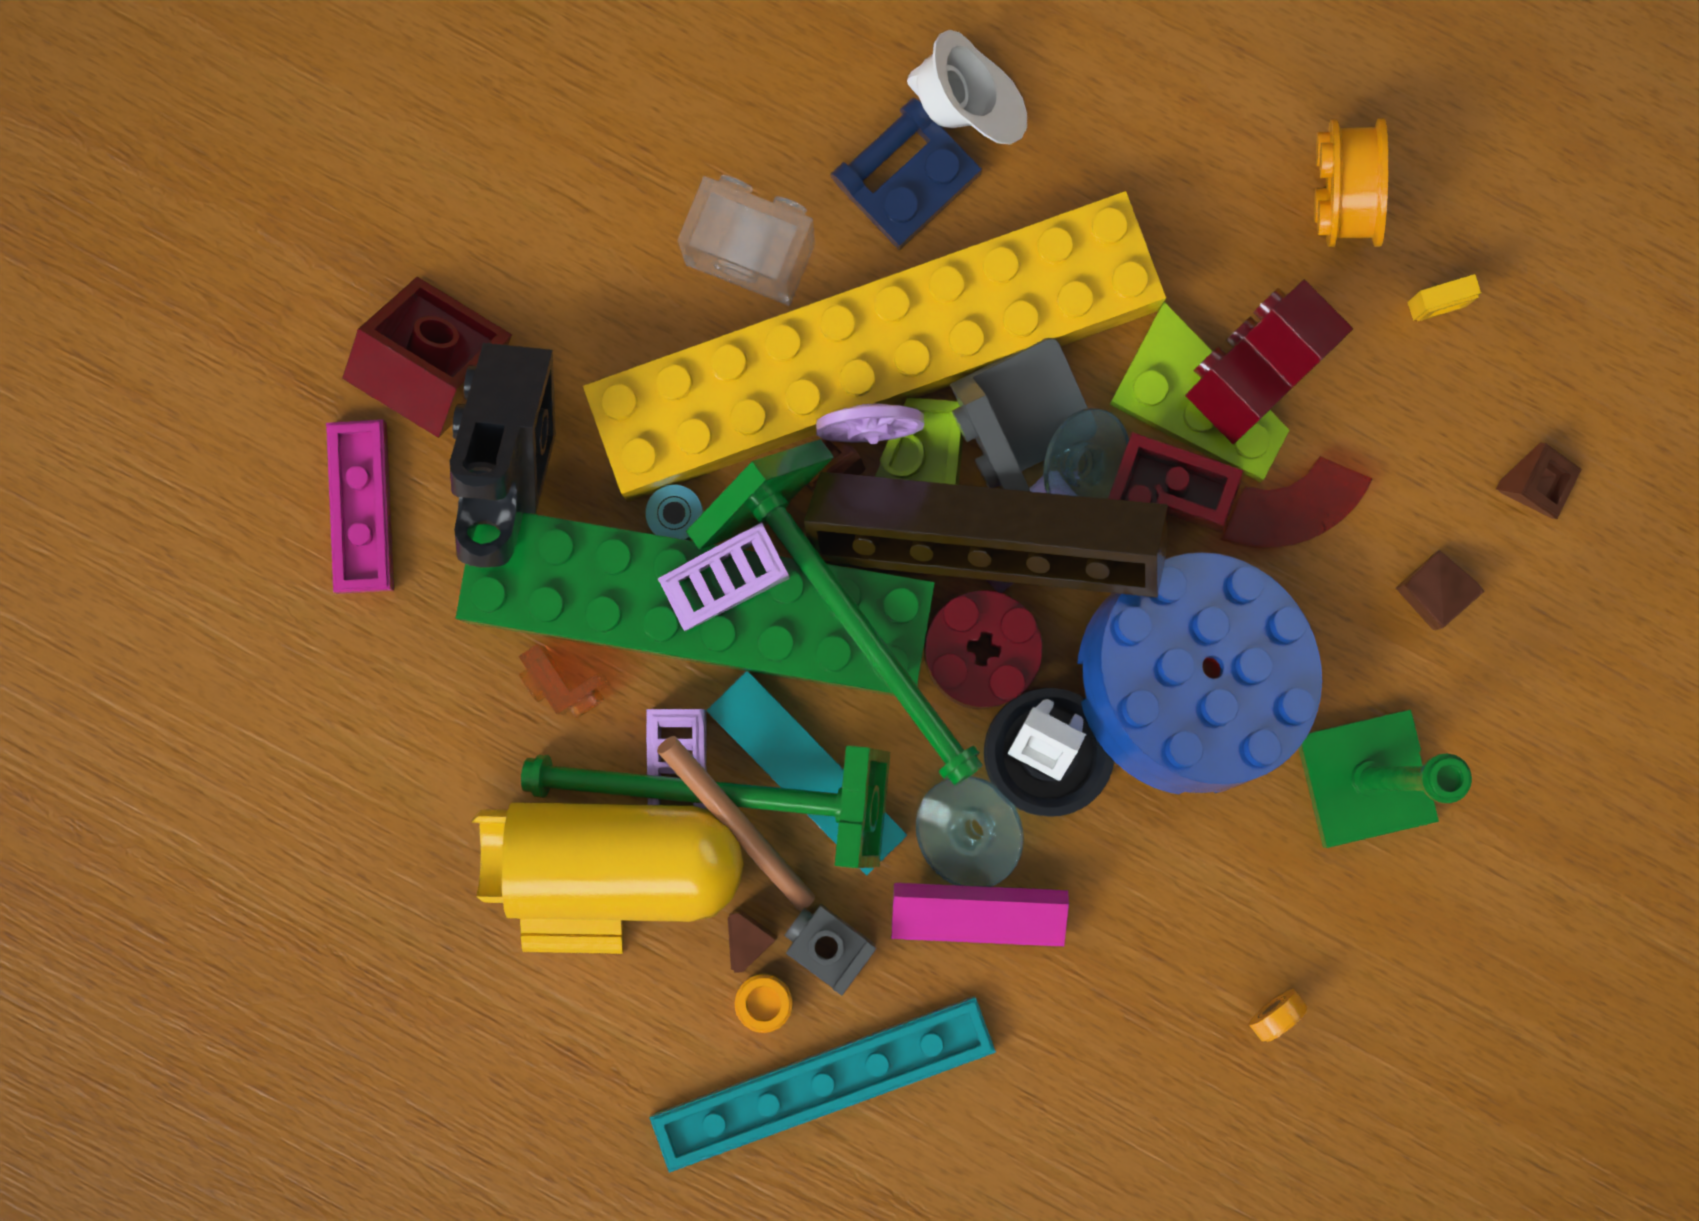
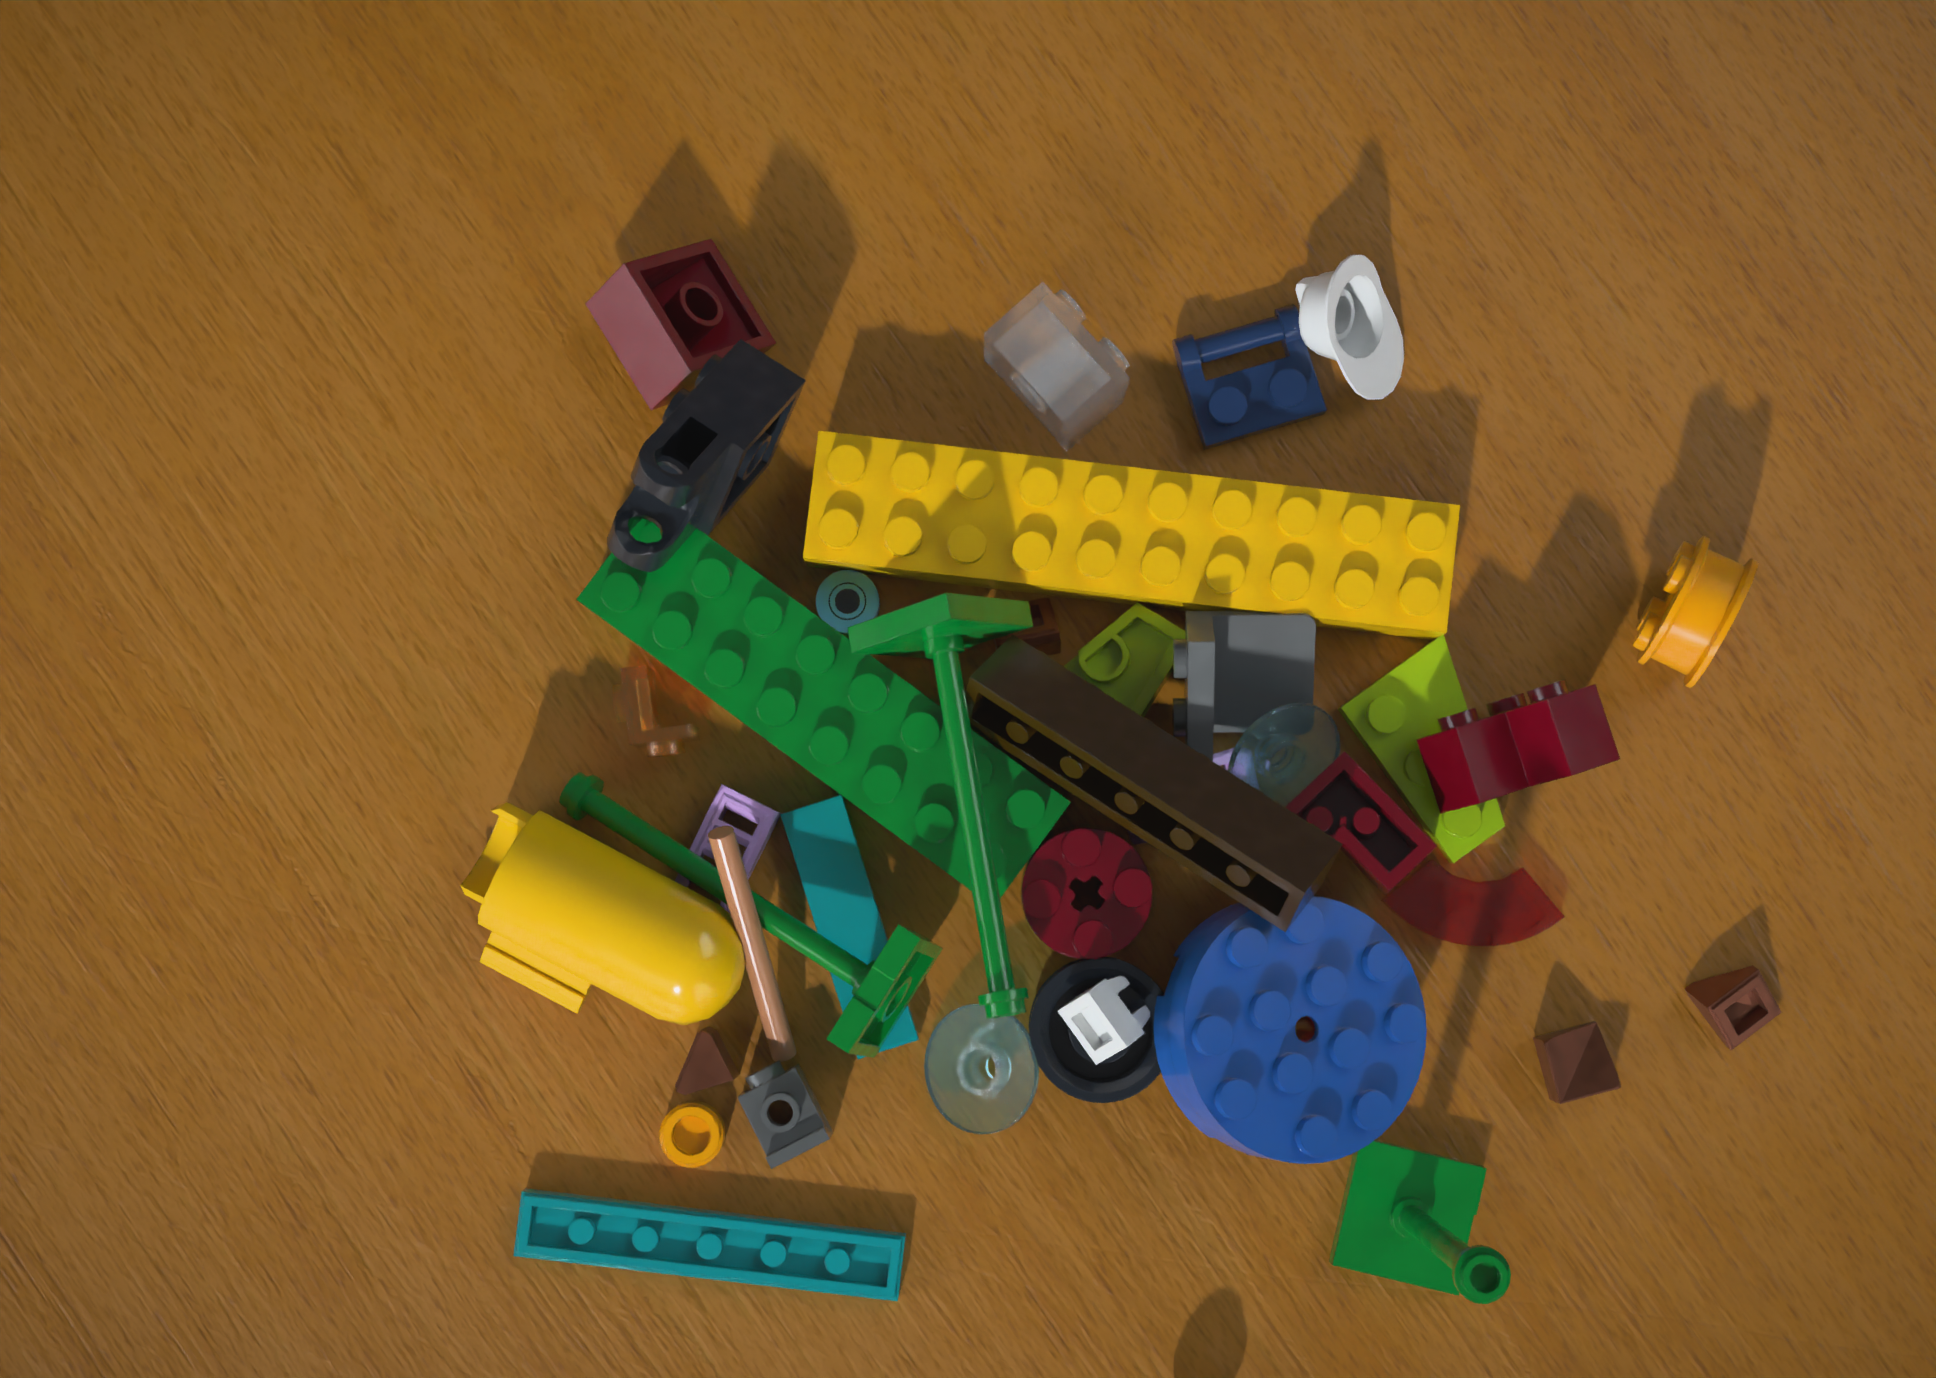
camera: 25 degrees right, 0 degrees up
(360, 506) = (540, 439): dark pink tile -> none
(733, 547) = (916, 693): lavender slope -> none
(869, 423) = (1085, 610): lavender wheel -> none
(979, 914) = (950, 1155): dark pink tile -> none
(1444, 298) = (1728, 771): yellow tile -> none

